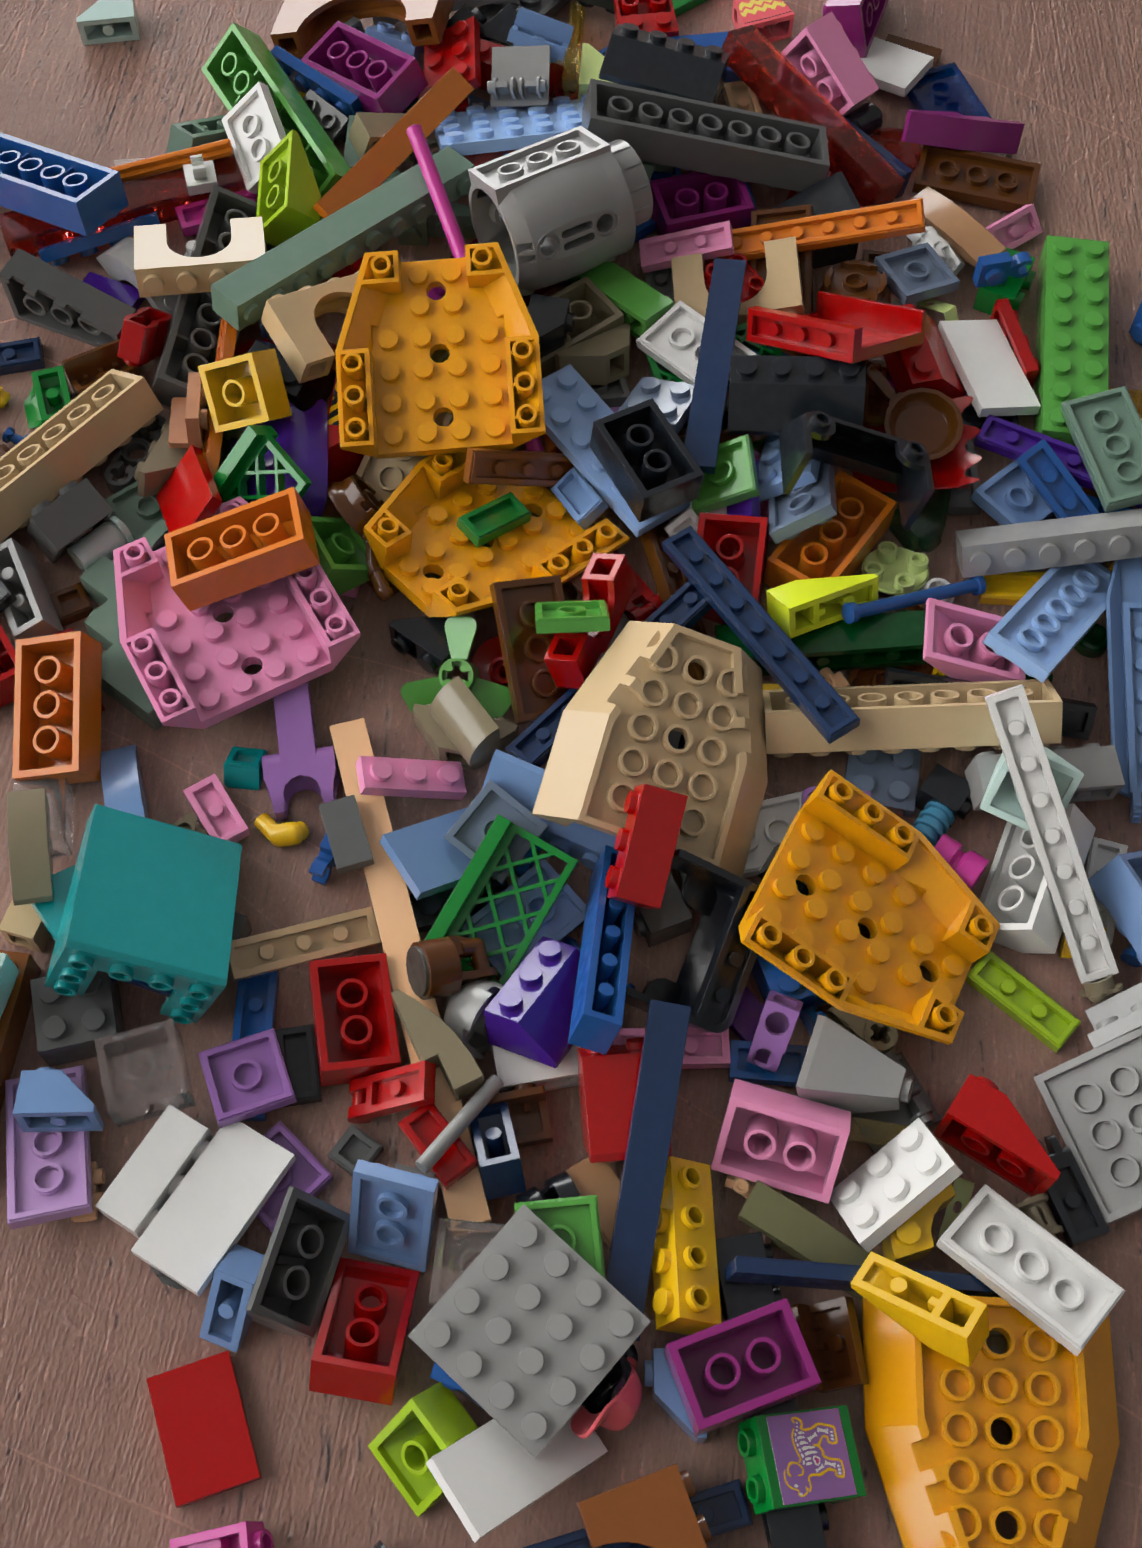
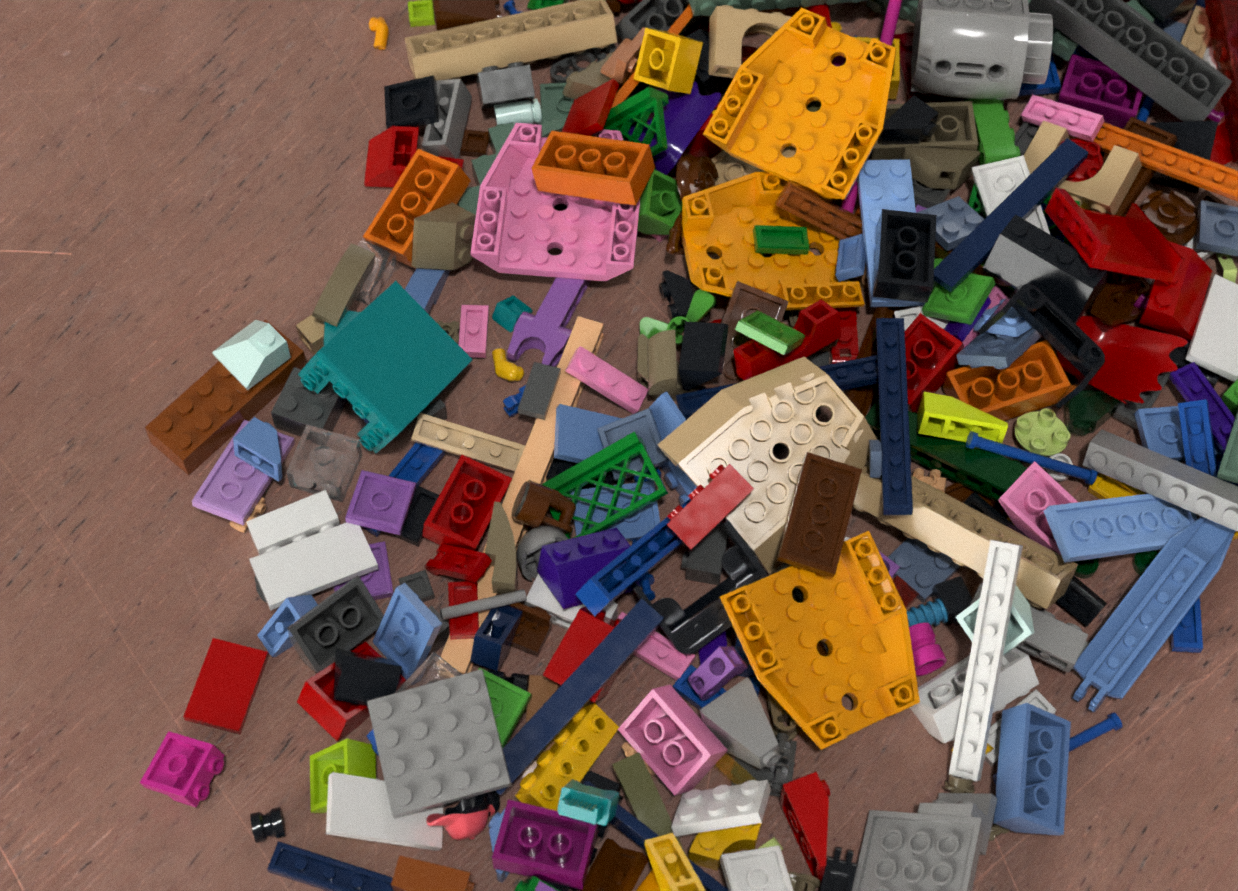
camera: 35 degrees right, 0 degrees up
(114, 725) = (443, 238): none -> dark tan slope
(377, 1305) = (363, 677): none -> black slope
(507, 683) = (702, 353): none -> black slope
(763, 1286) = (587, 803): none -> teal piece
(771, 784) = (819, 515): none -> reddish brown plate
(775, 689) = (875, 459): none -> sand blue tile
(919, 415) = (1131, 337): reddish brown piece -> none
(1022, 1001) = (903, 761): lime tile -> none

